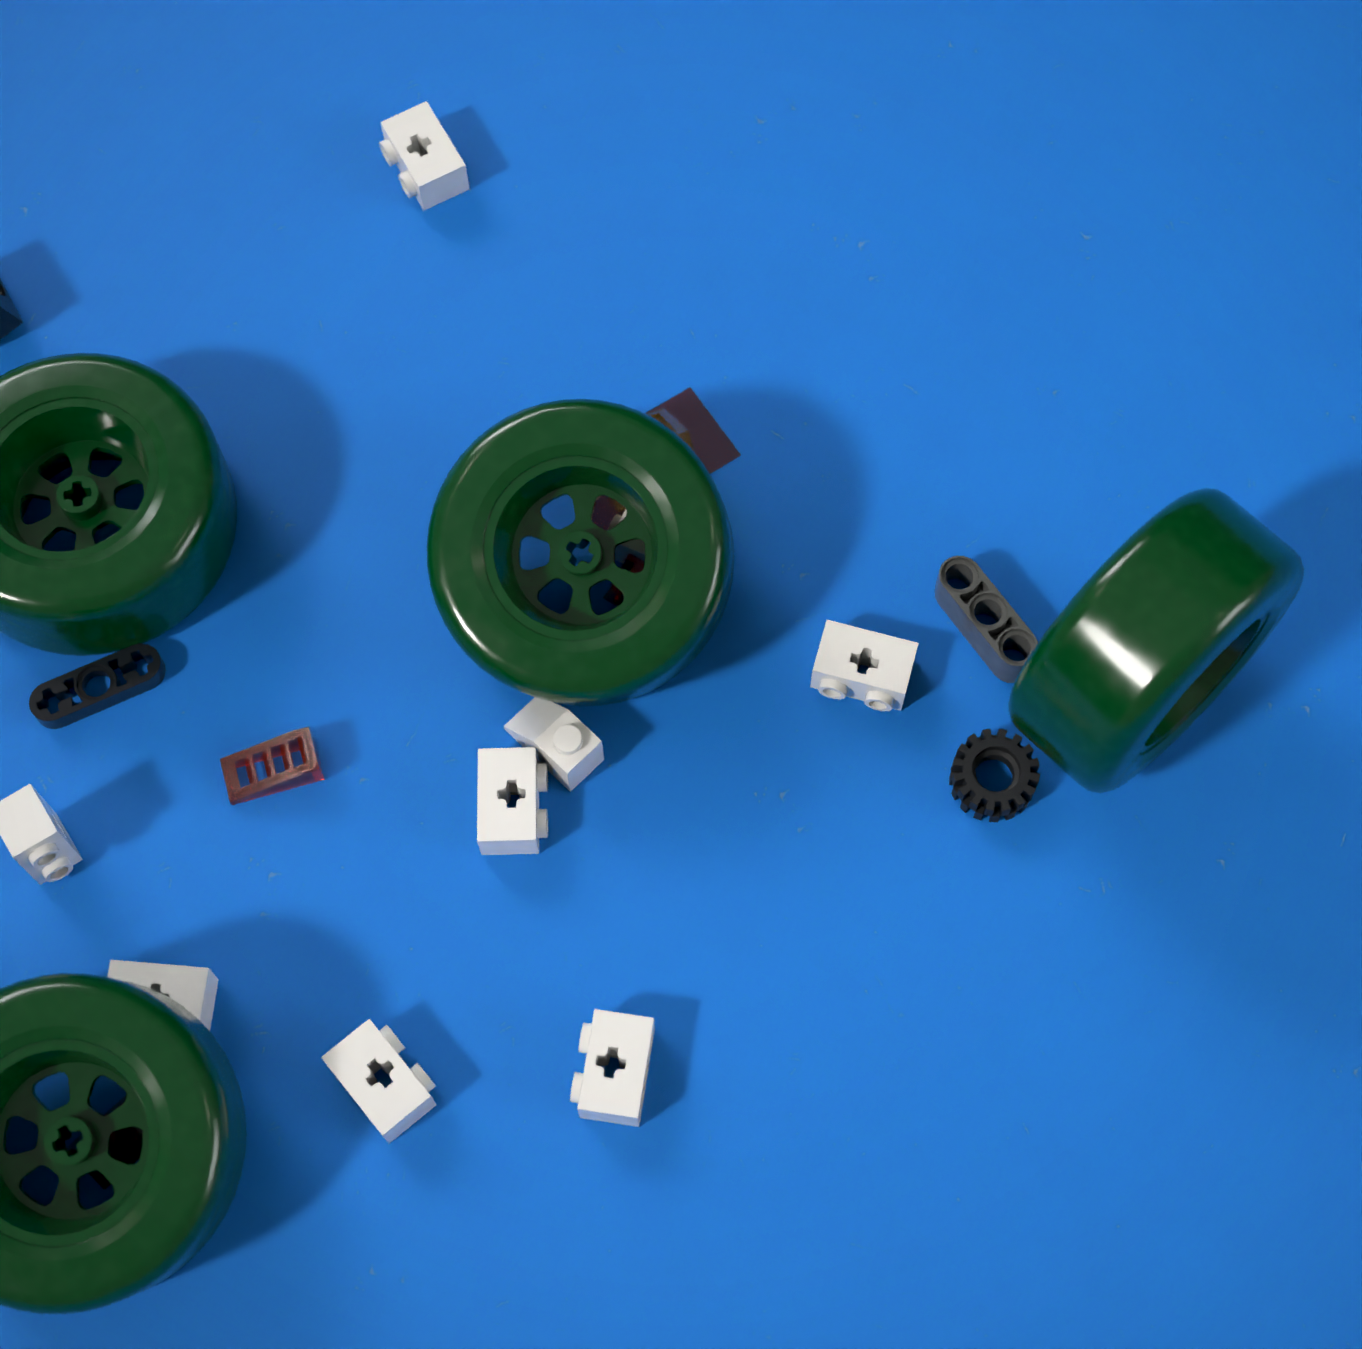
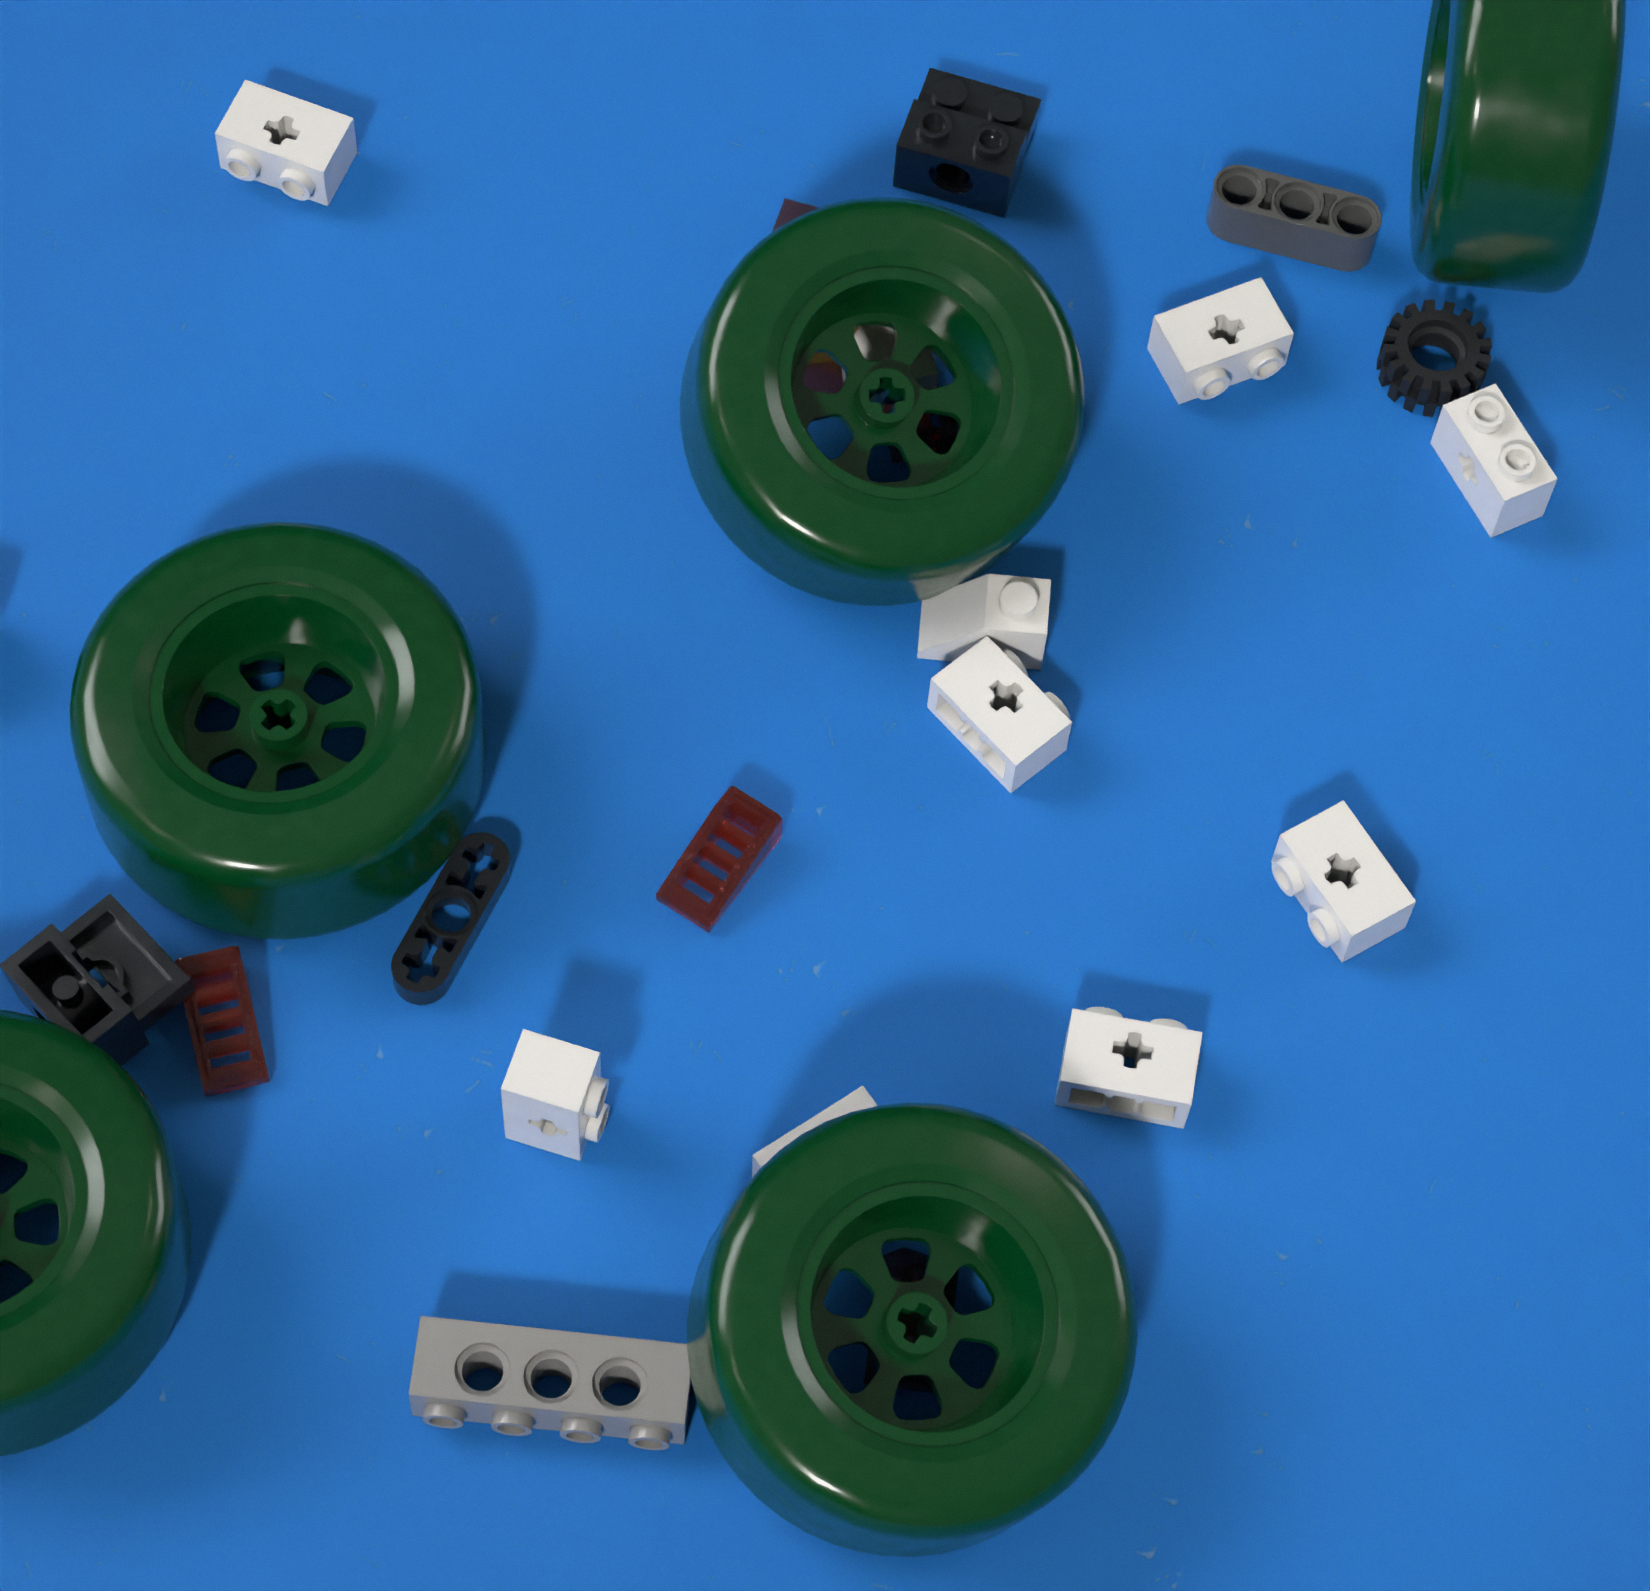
camera: 45 degrees left, 5 degrees down
(822, 425) = (965, 142): none -> black brick
(966, 870) = (1493, 460): none -> white brick

